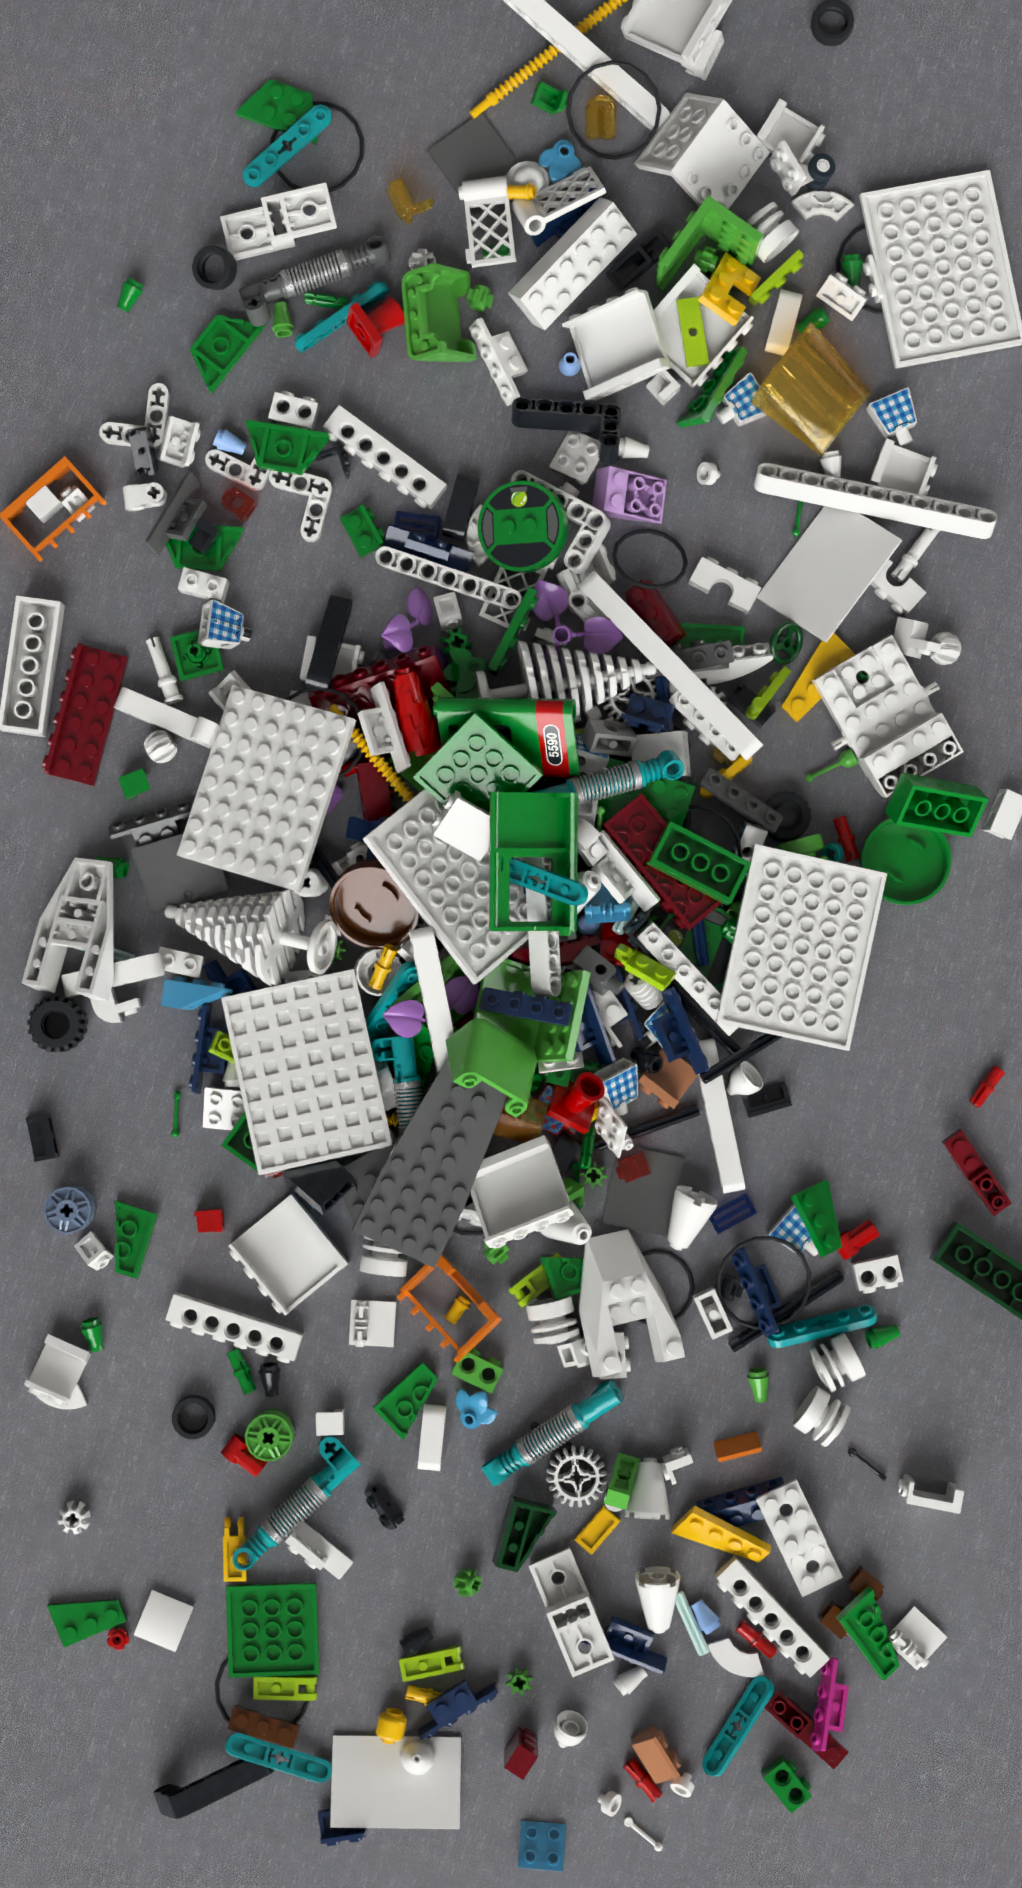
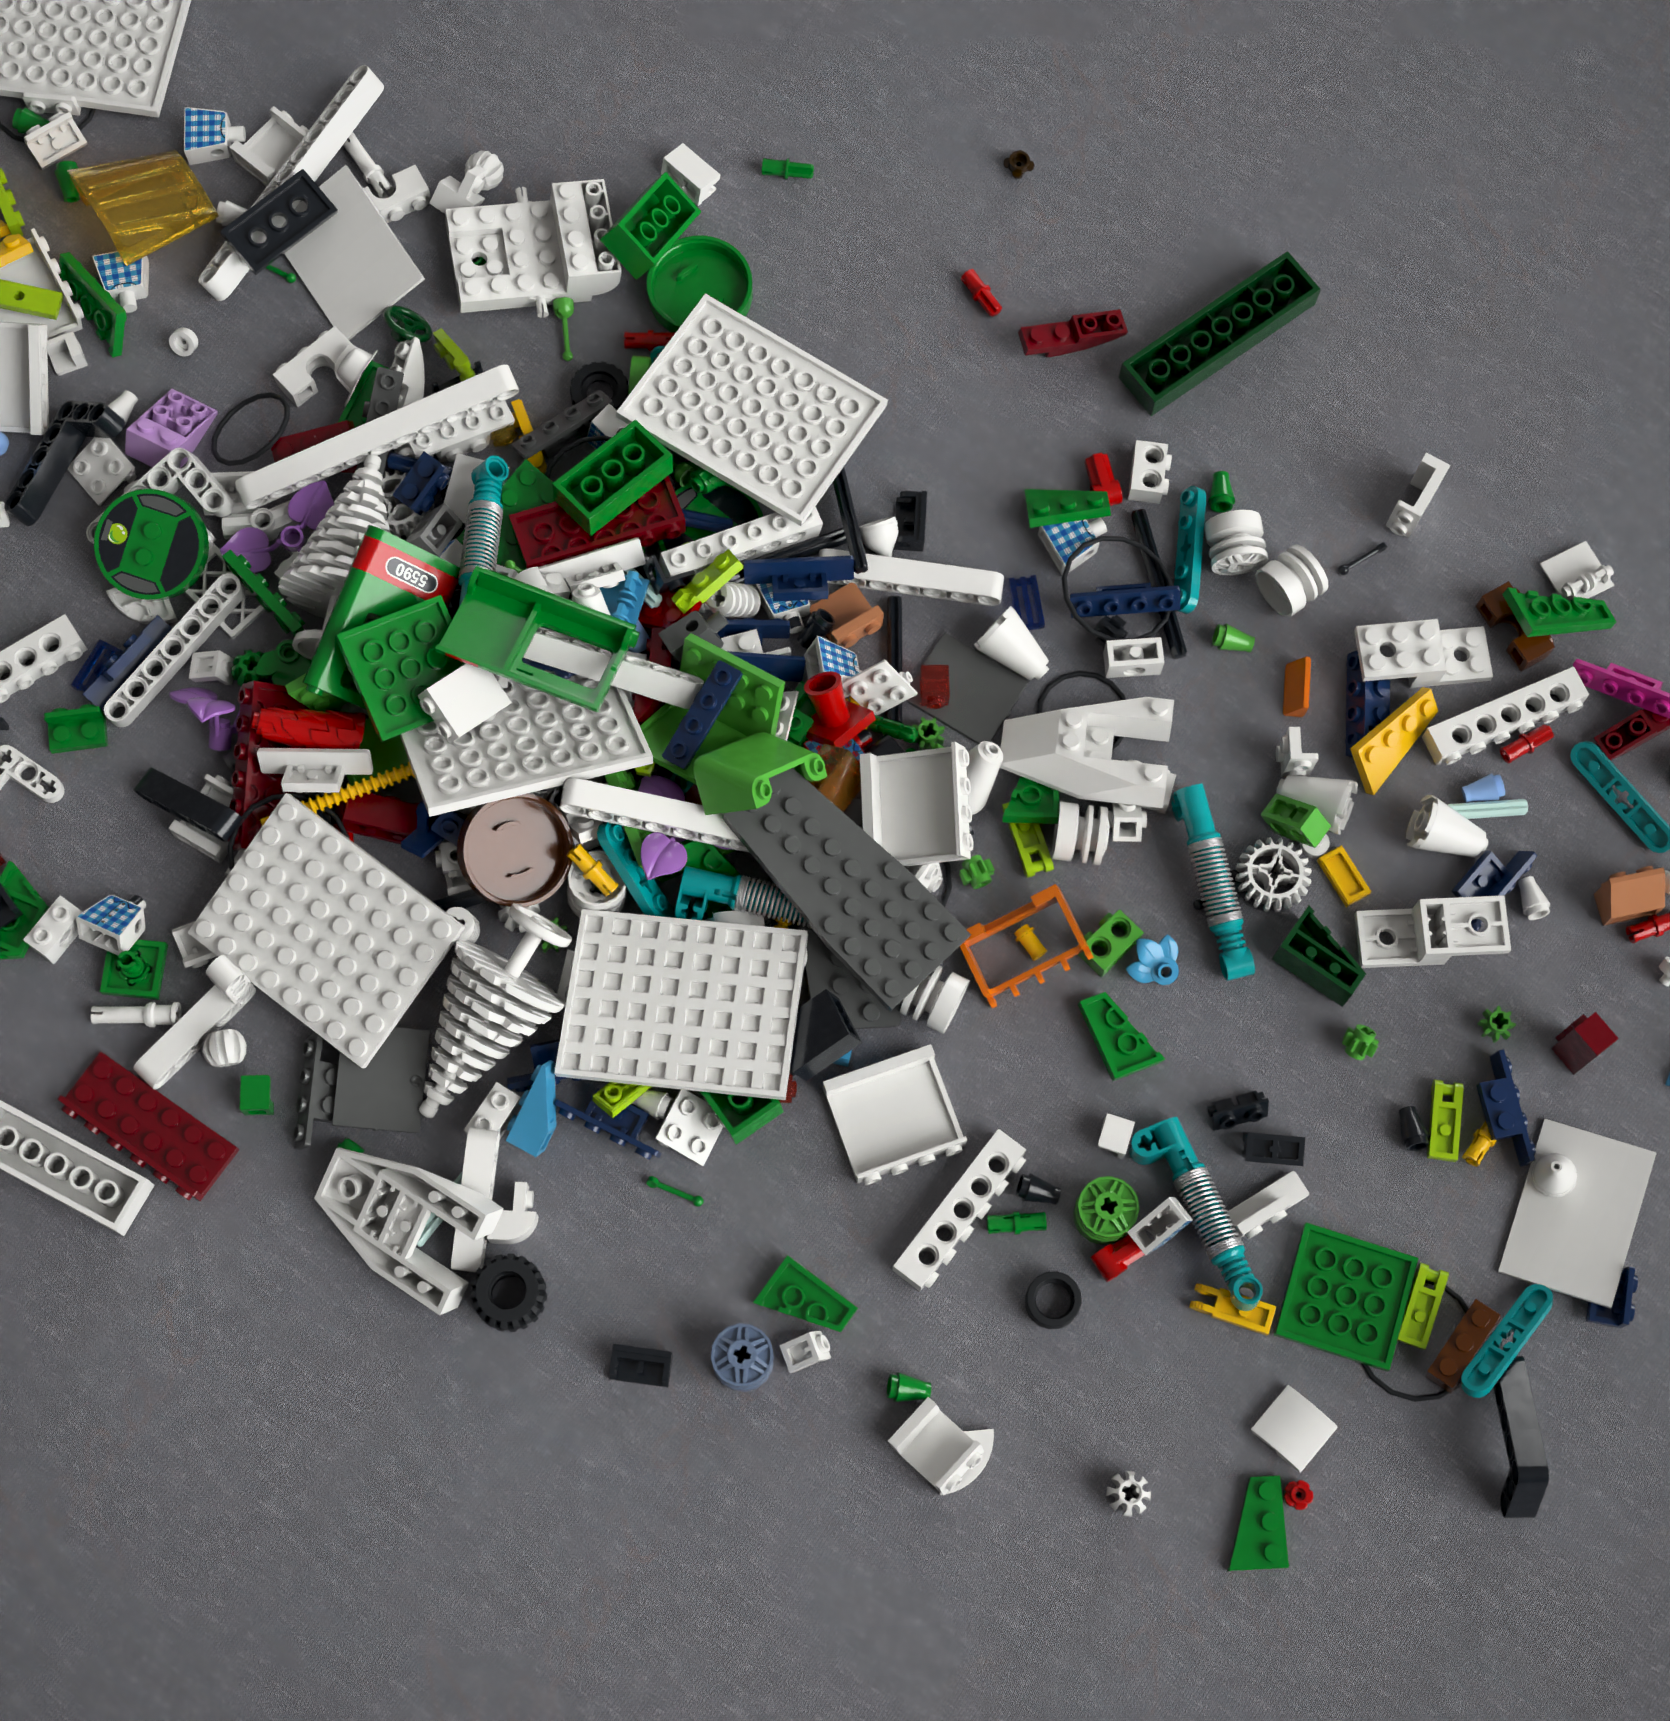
camera: 75 degrees left, 15 degrees down
(210, 1220) = (819, 1194): red panel -> none
(274, 1484) = (1162, 1223): none -> white torso
(363, 1542) = (1273, 1148): none -> black hinge
(372, 1323) = (1012, 1047): white hinge -> none
(391, 1725) = (1507, 1192): yellow head -> none
(432, 1437) = (1173, 1024): white beam -> none
(460, 507) = (99, 612): black beam -> none
(557, 886) = (576, 623): teal piece -> none
(570, 1728) = (1572, 985): white helmet -> none
(729, 616) = (350, 367): none -> white piece
(735, 1660) = (1544, 775): white tile -> none
(783, 322) = (55, 209): white beam -> none
(804, 693) = (470, 327): yellow wing -> none
(831, 524) = (279, 203): none -> black plate

